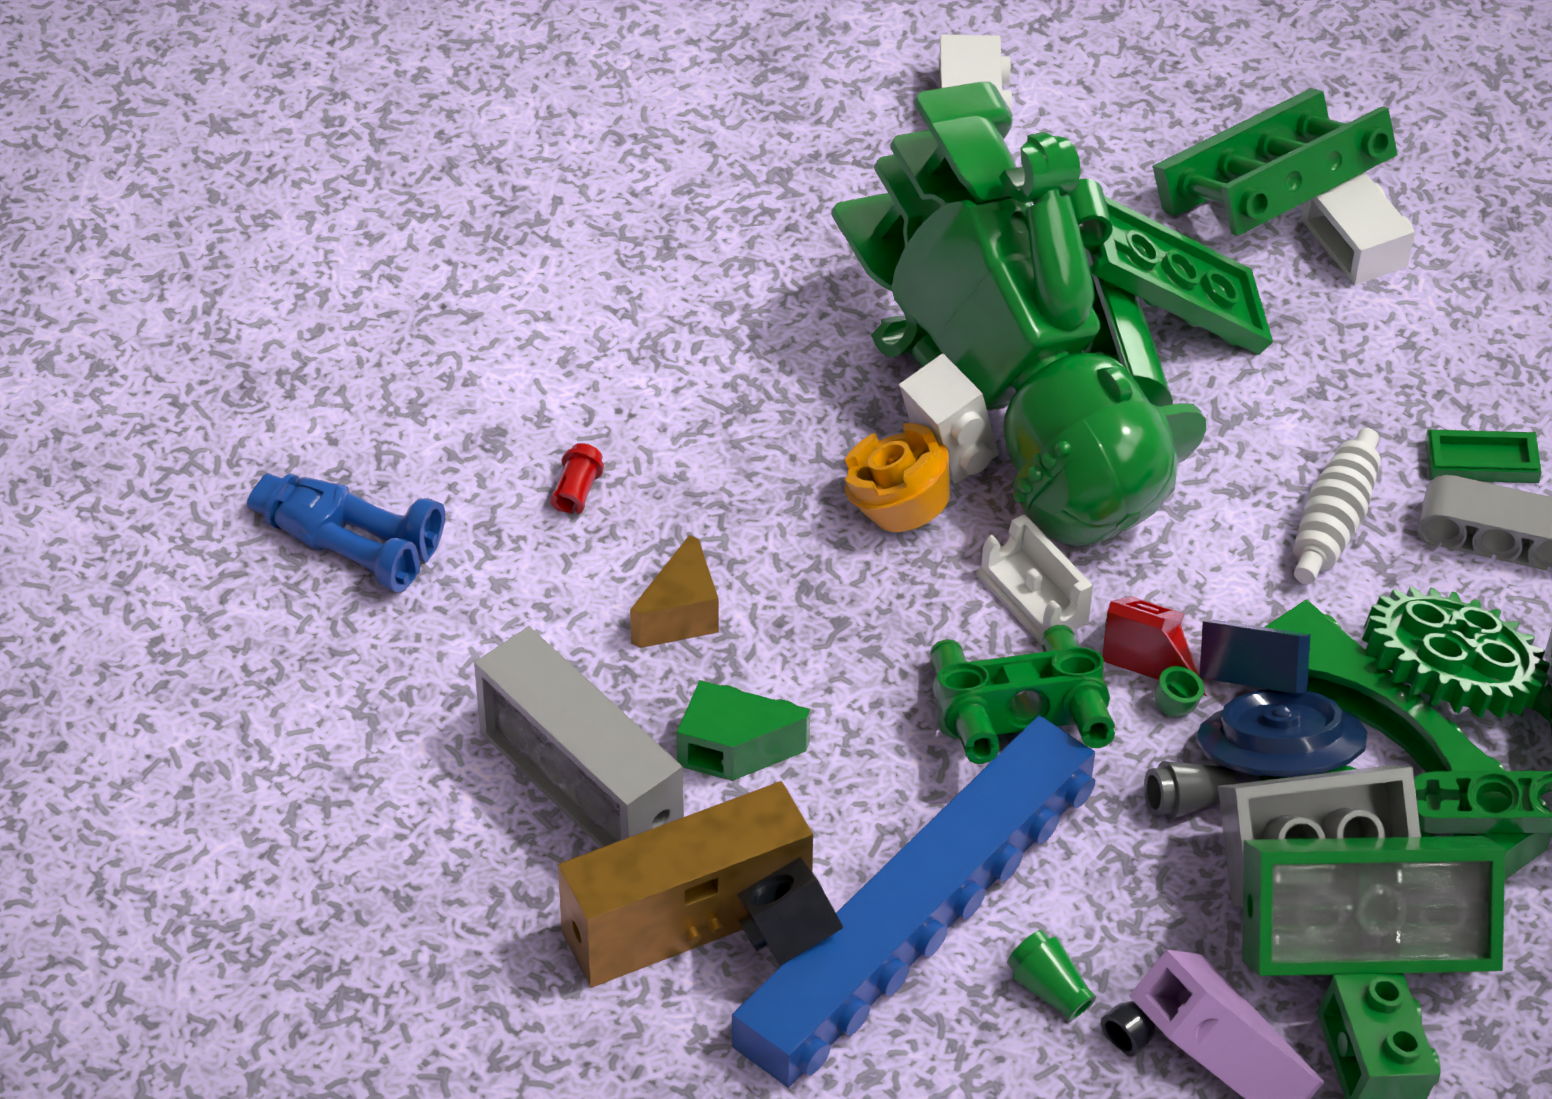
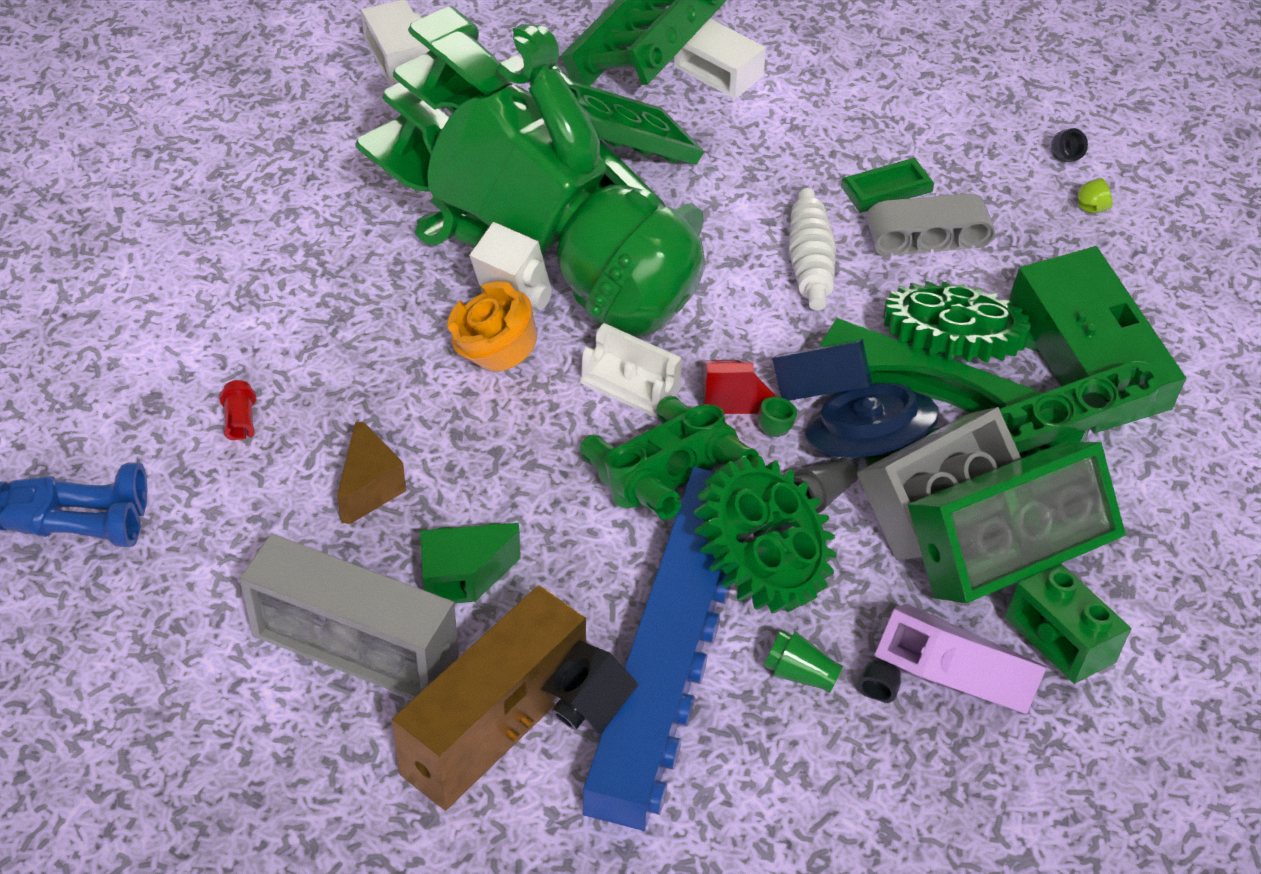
camera: 25 degrees left, 0 degrees up
(1077, 871) = (776, 566): none -> green gear

